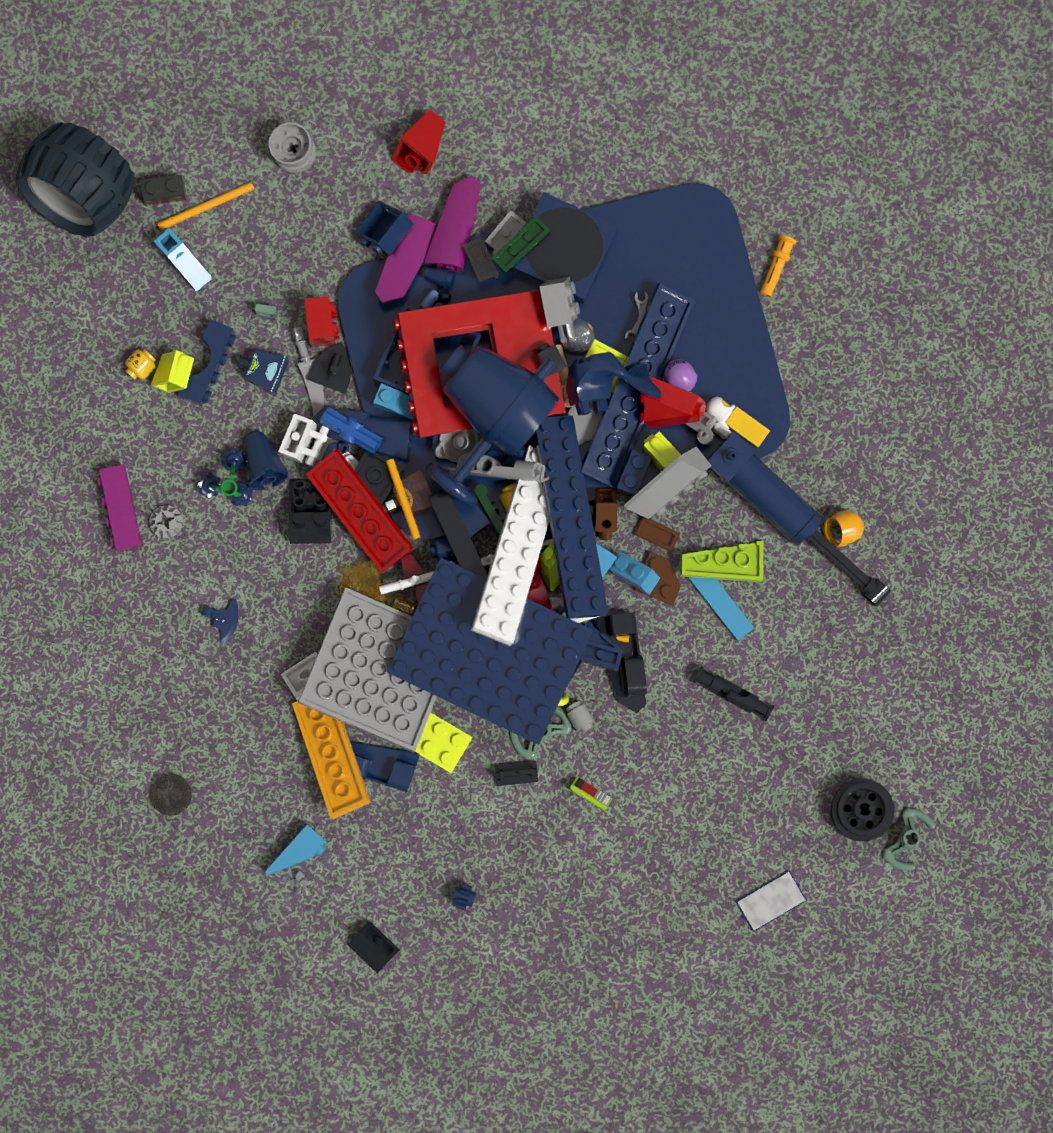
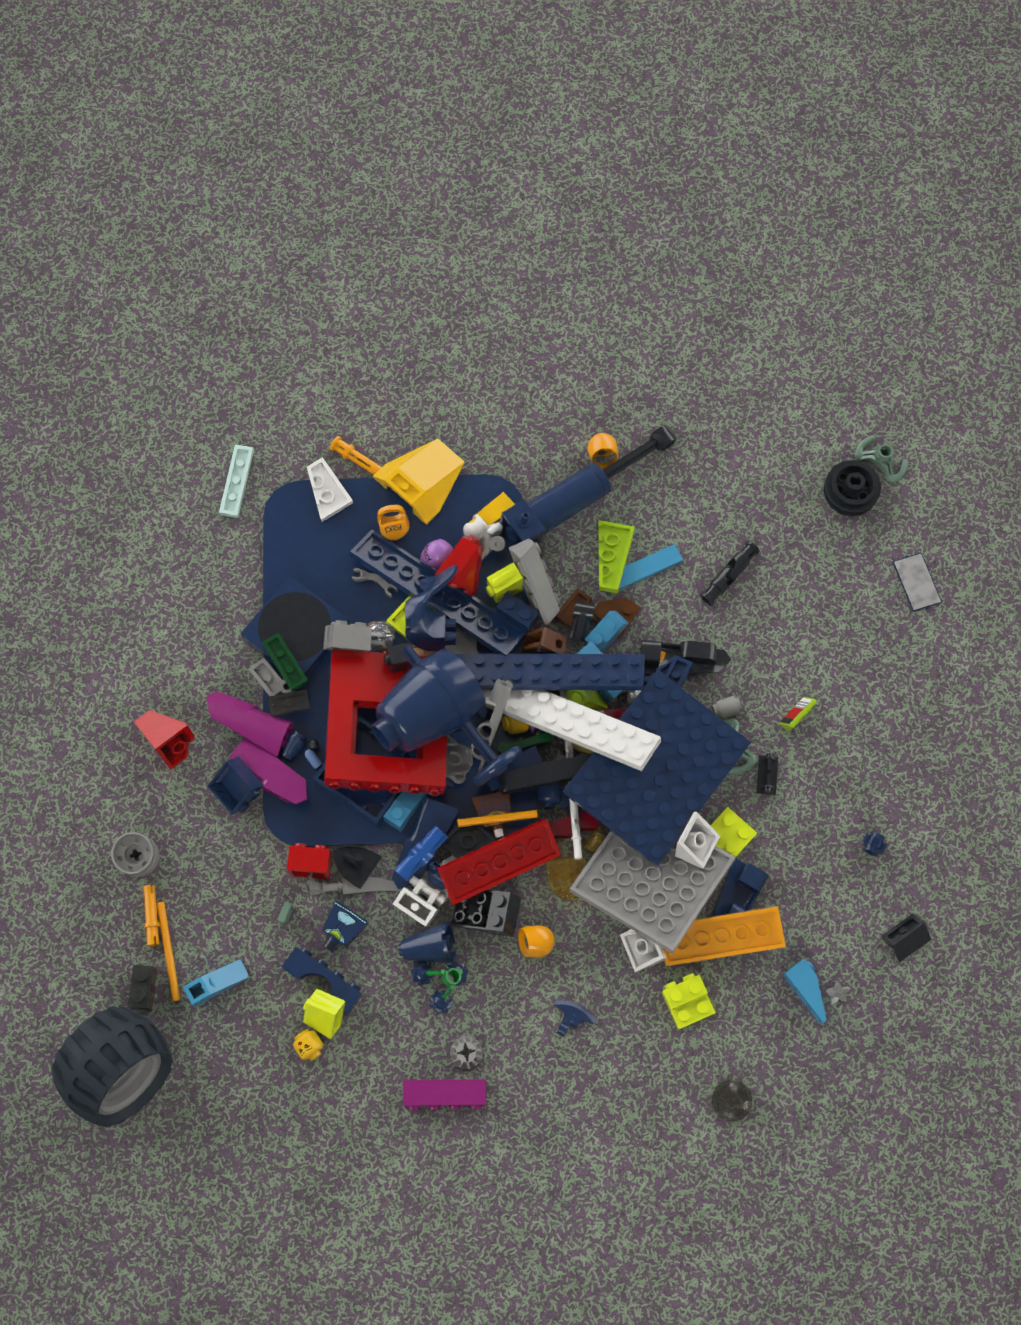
camera: 75 degrees left, 10 degrees down
(237, 179) = (151, 921): none -> light orange pin
(261, 732) = (688, 1001): none -> neon yellow plate
(289, 567) = (539, 940): none -> light orange helmet
(421, 707) = (696, 841): none -> white slope
(641, 544) = (582, 617): none -> black piece
(705, 321) = (393, 526): none -> light orange helmet
(720, 146) = (236, 481): none -> light aqua plate
(728, 245) = (327, 489): none -> white wing
(766, 341) = (423, 477): none -> yellow wedge

